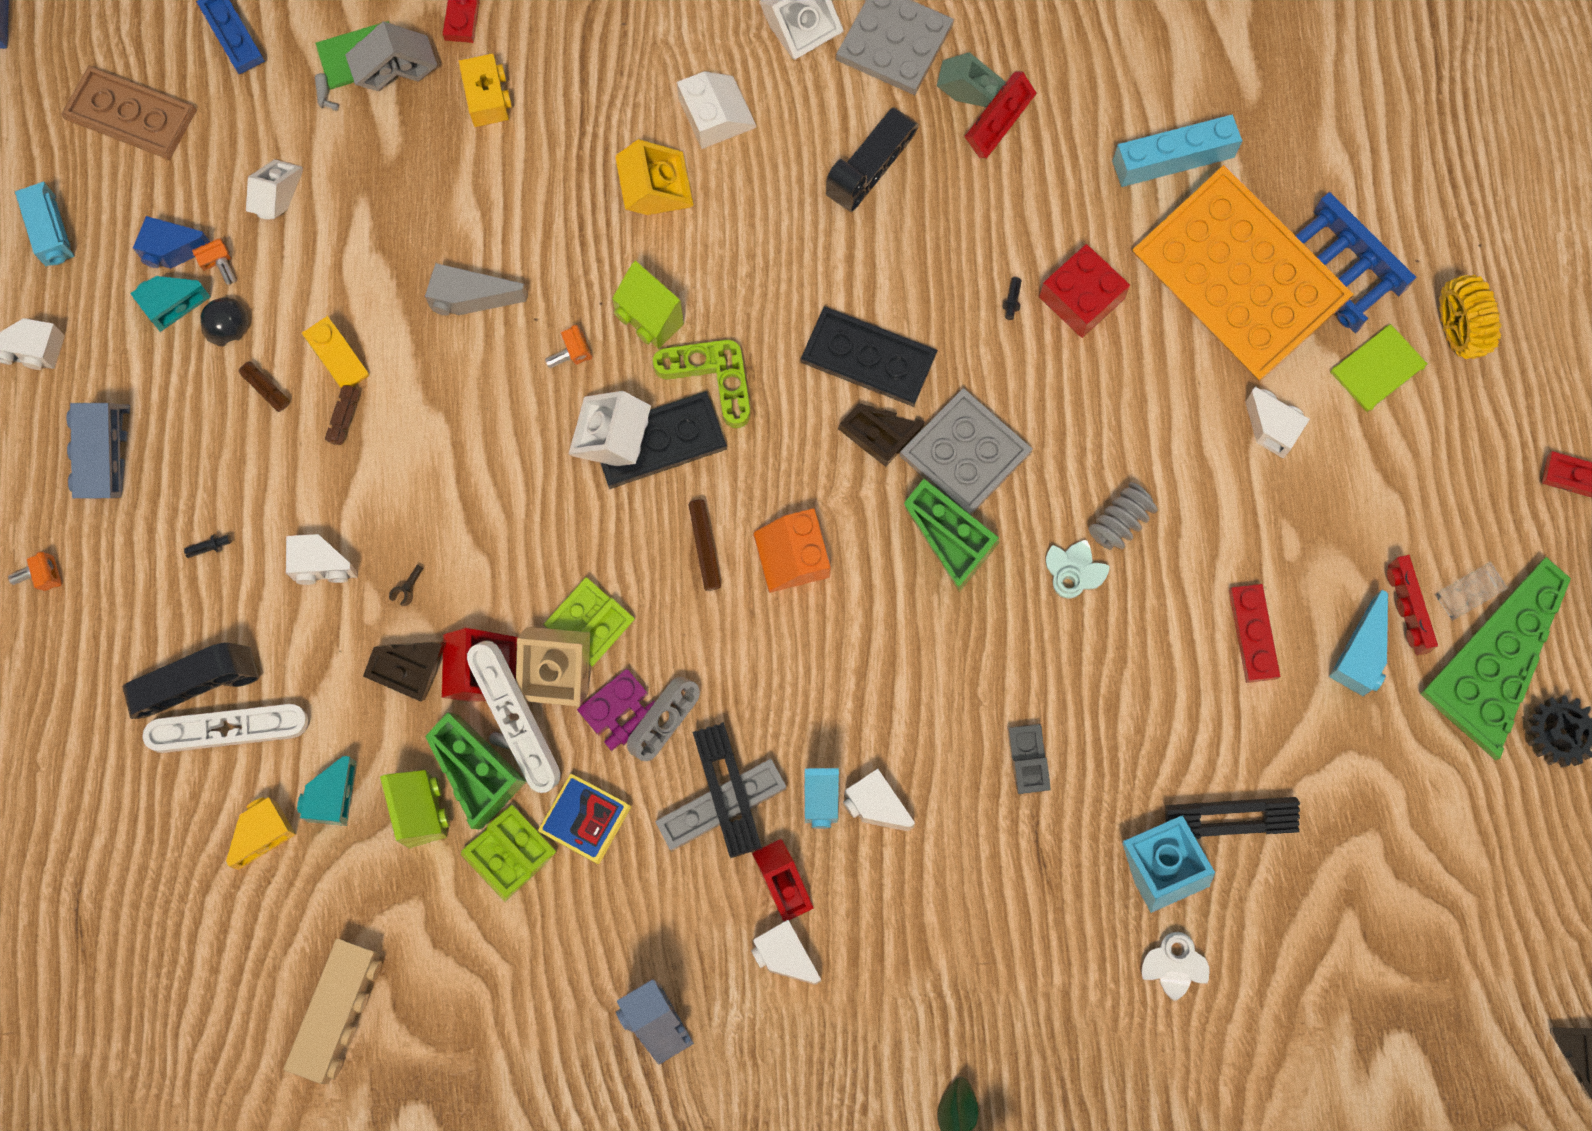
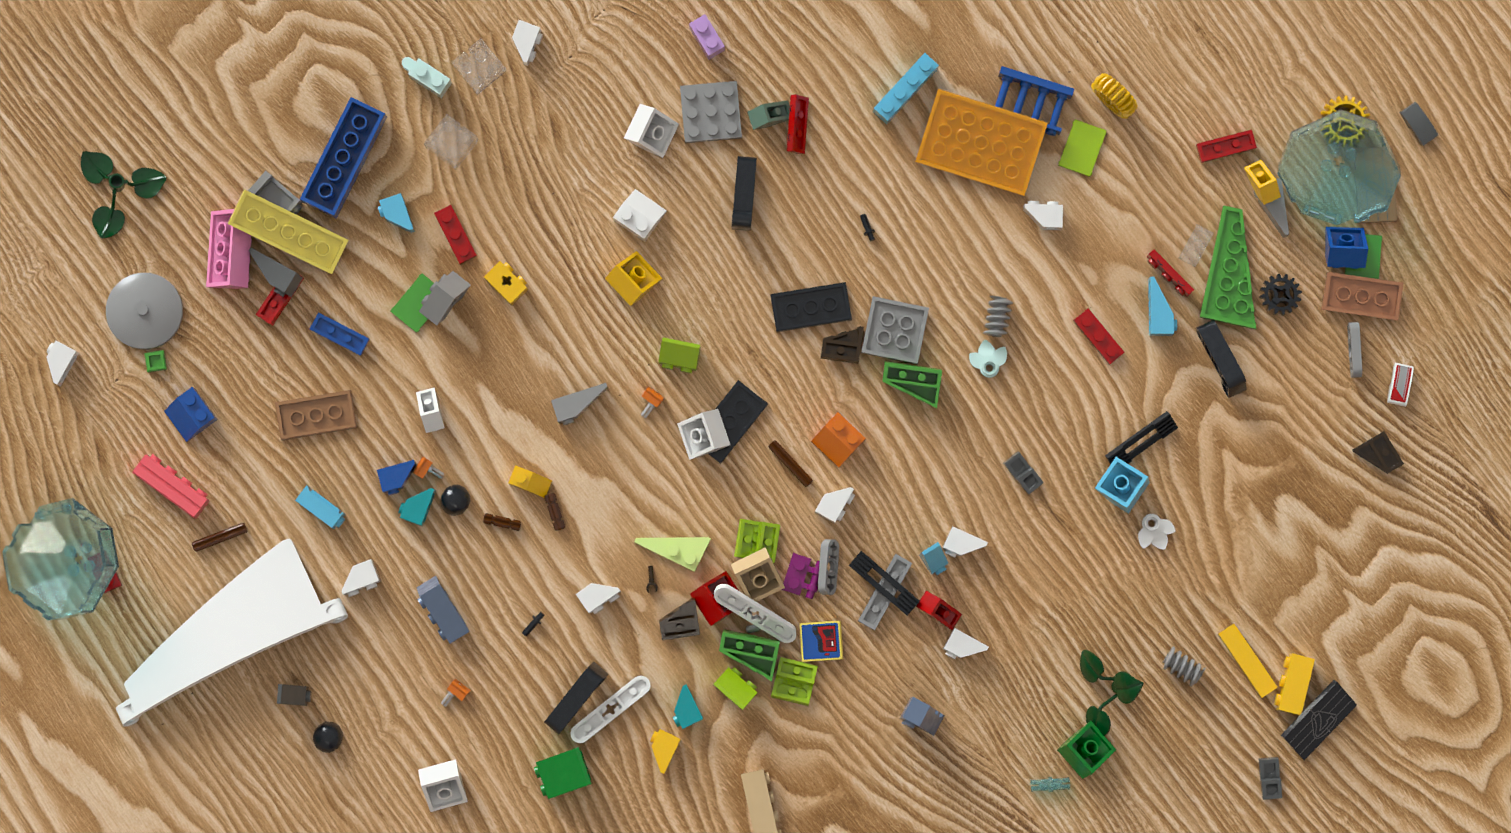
camera: 35 degrees left, 10 degrees up
(97, 776) = (563, 773): none -> green slope
(322, 92) = (414, 337): light grey piece -> none
(475, 570) = (681, 550): none -> yellowish green wing
(713, 364) = (731, 362): lime beam -> none
(728, 634) = (833, 503): none -> white slope
(1084, 290) = (903, 201): red brick -> none
(1426, 773) = (1231, 375): none -> black beam

